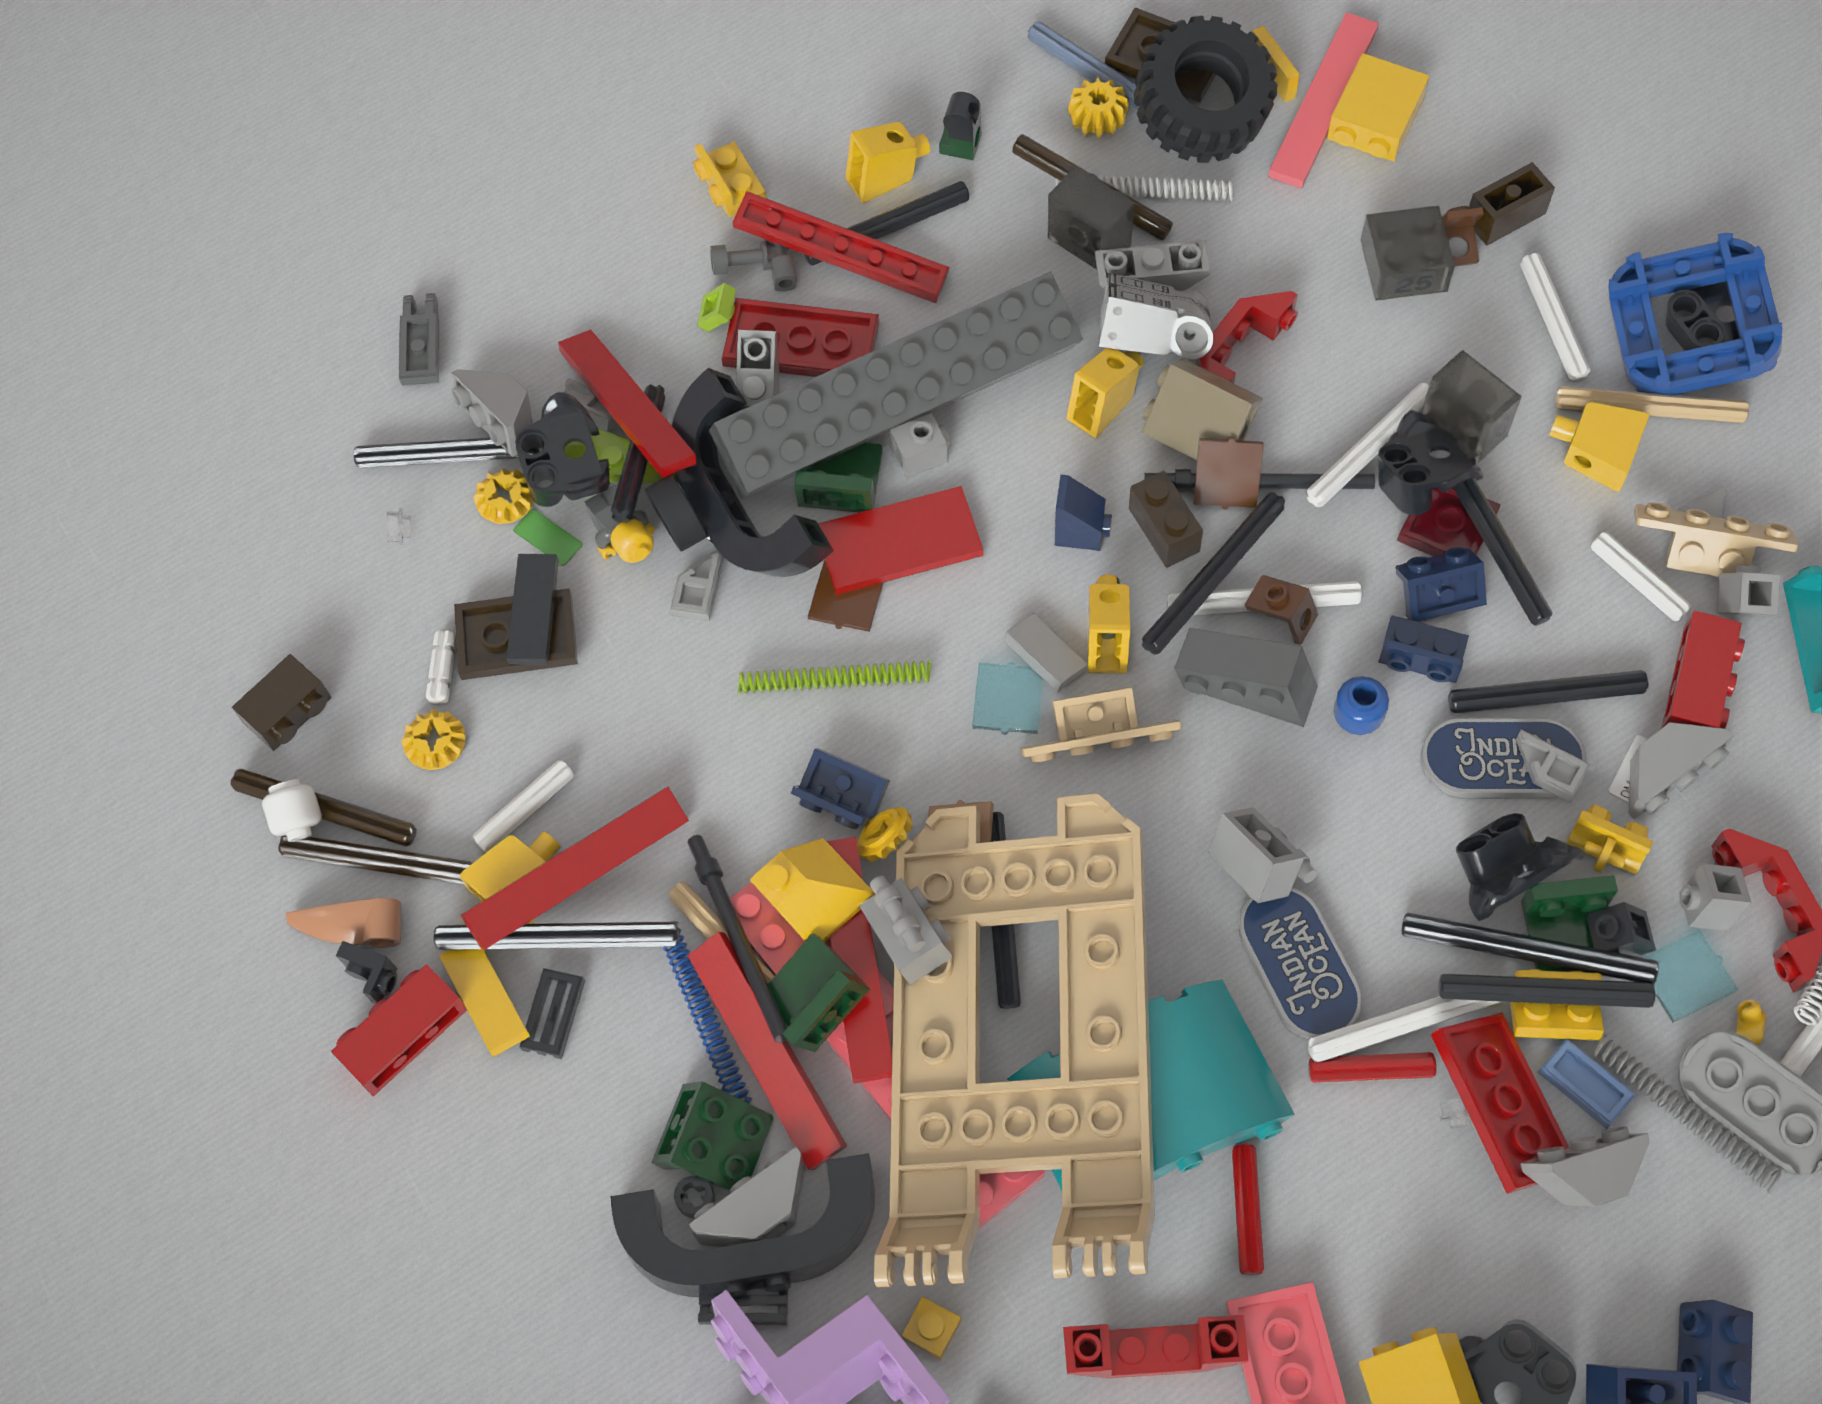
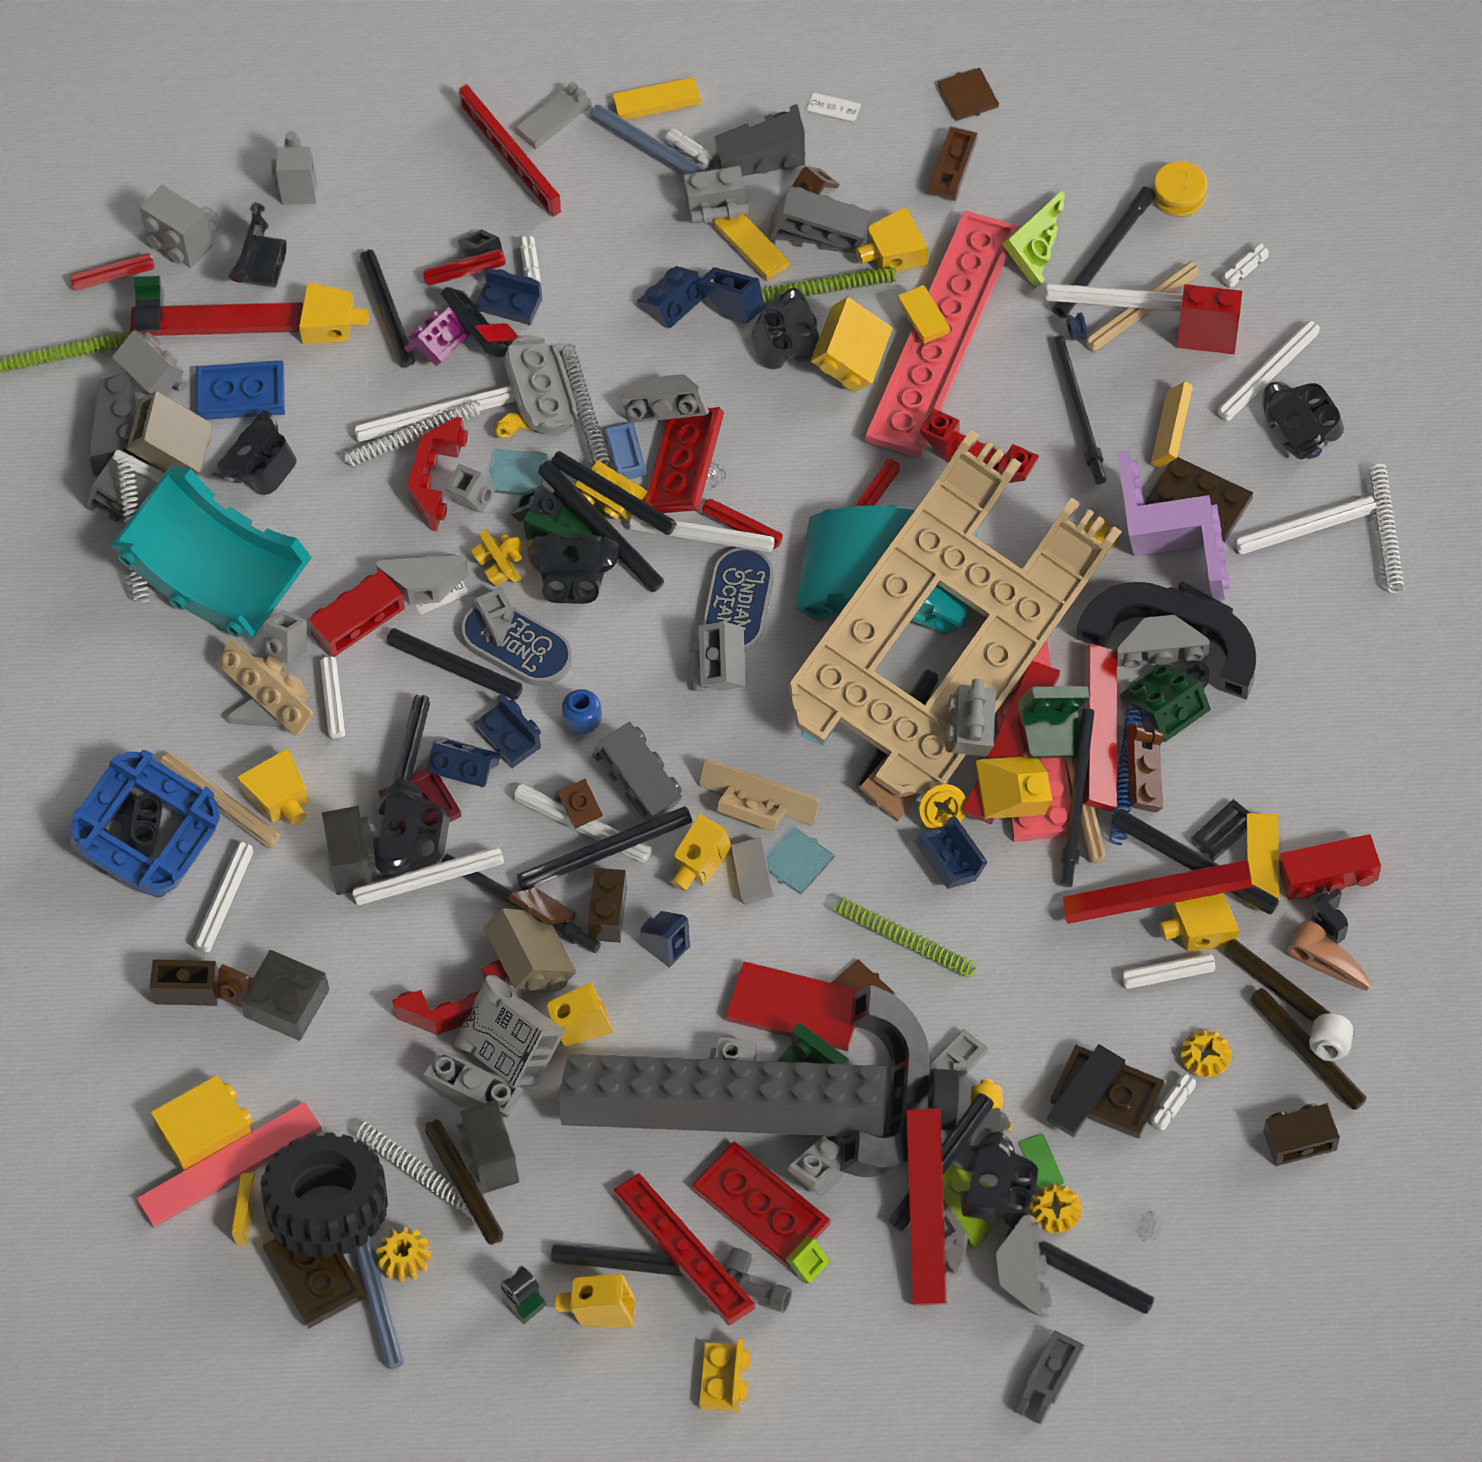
camera: 150 degrees left, 5 degrees down
(681, 1024) = (1145, 768): none -> reddish brown plate

